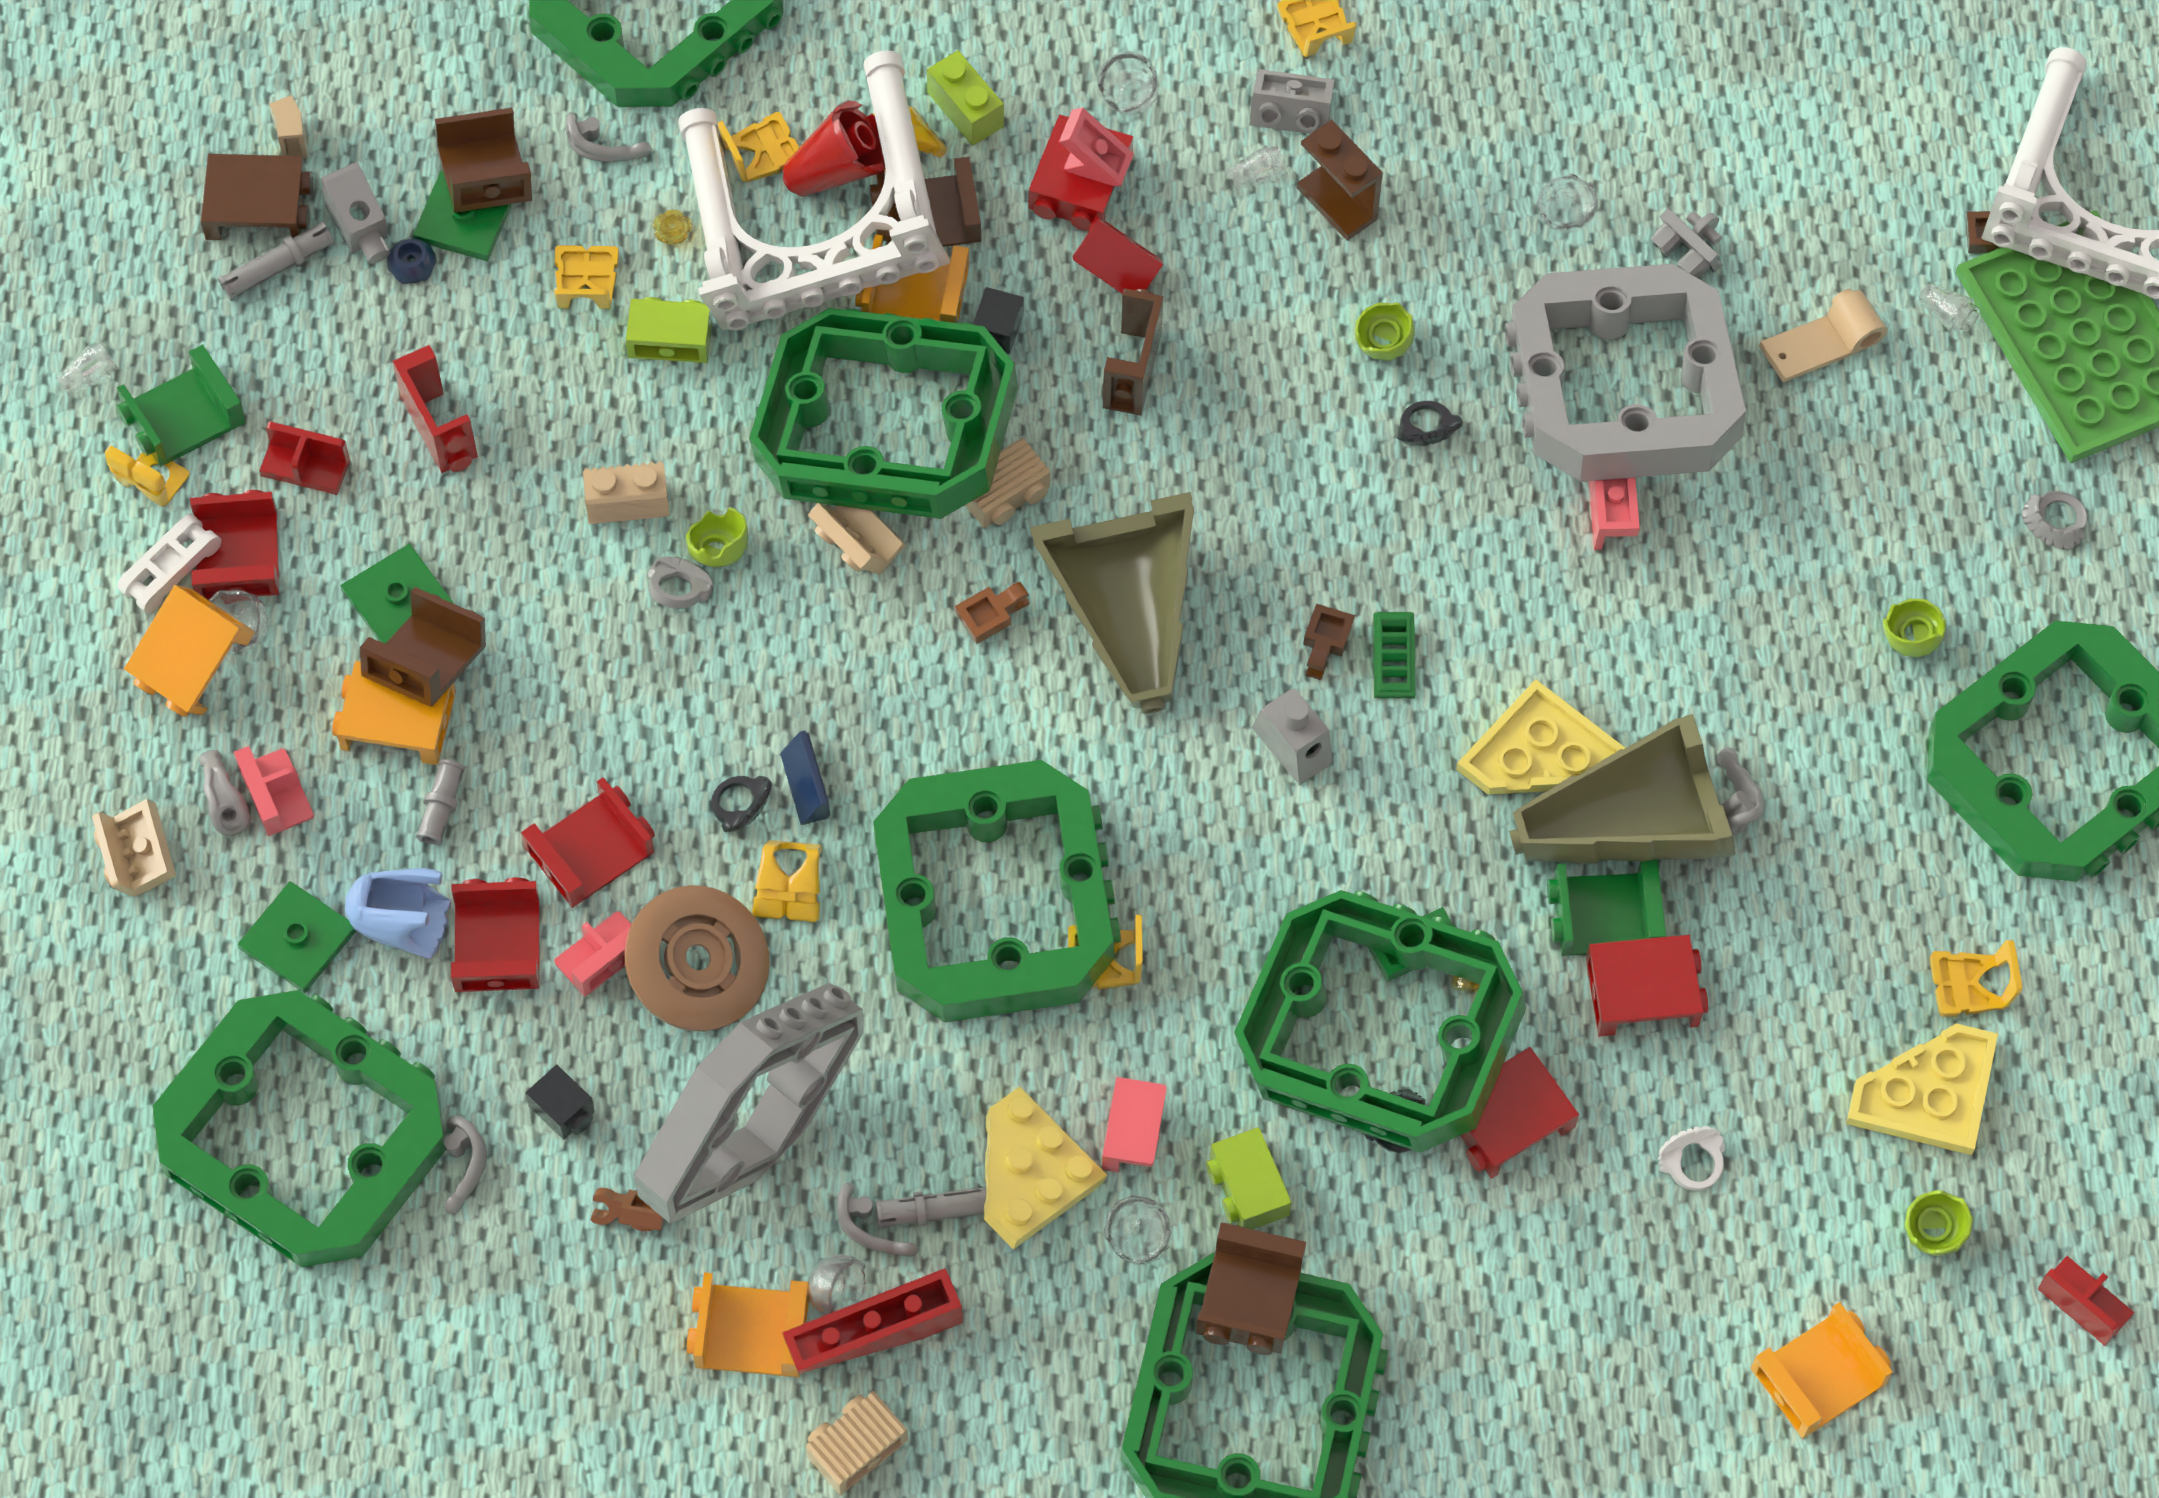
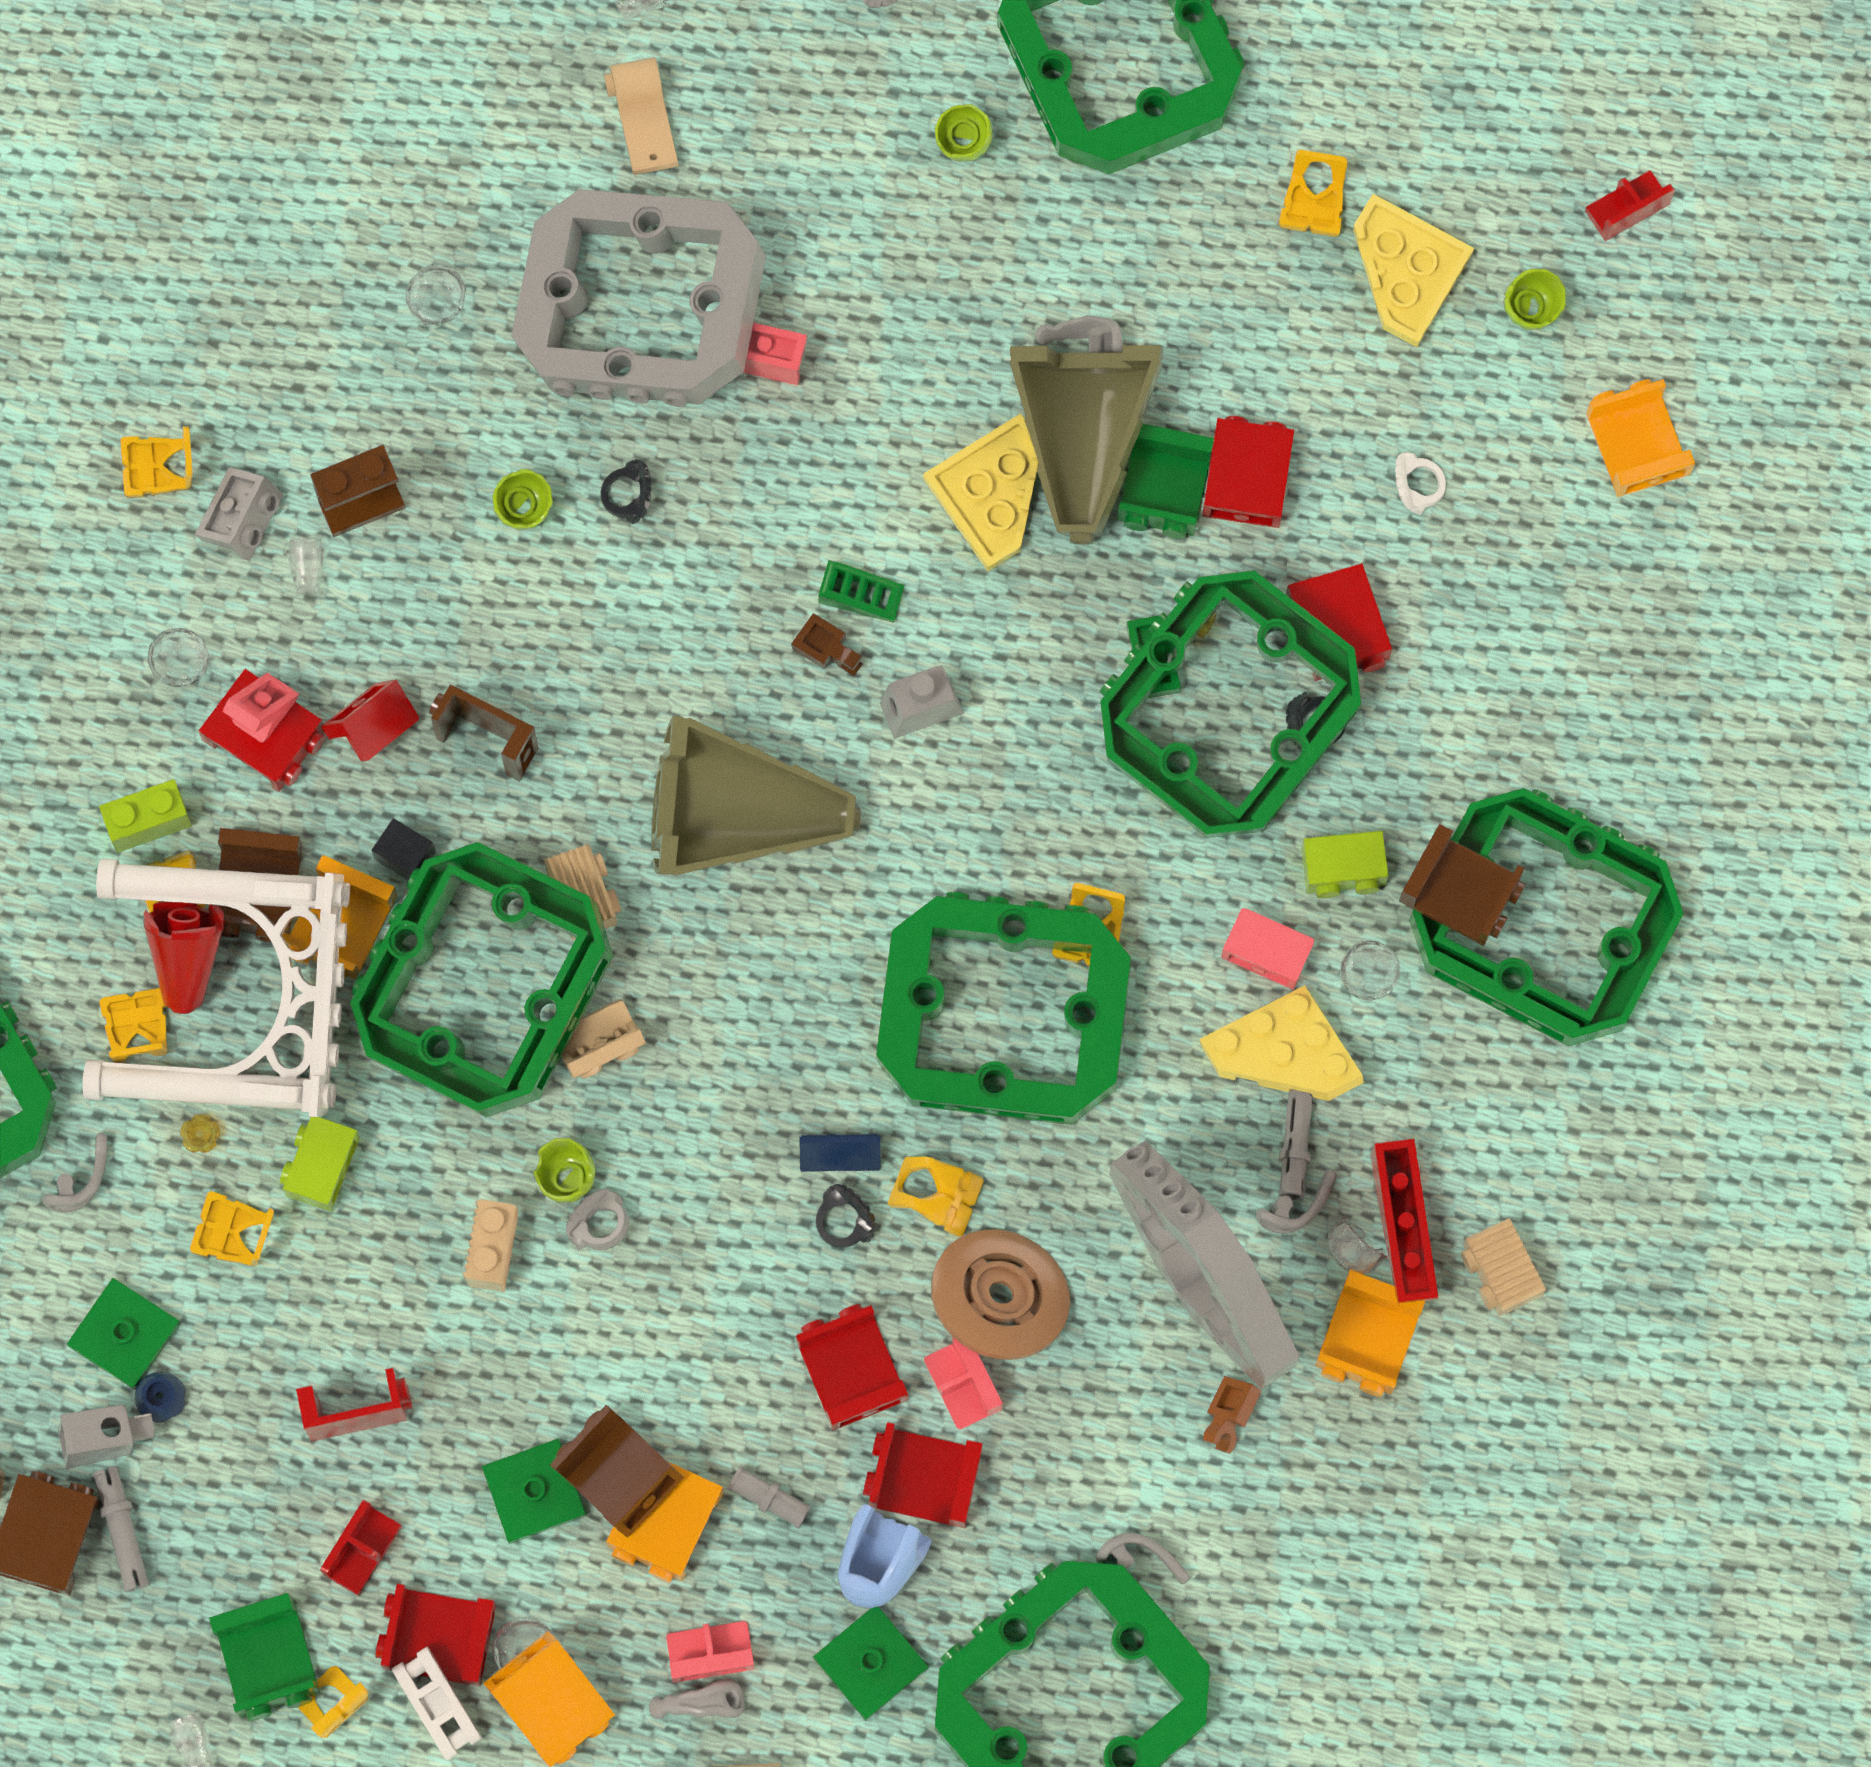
camera: 75 degrees left, 10 degrees up
(482, 160) = (75, 1299): reddish brown panel -> none
(561, 1103) = (1111, 1452): black brick -> none
(989, 613) = (713, 942): dark orange plate -> none
(1700, 254) = (493, 210): light grey hips -> none

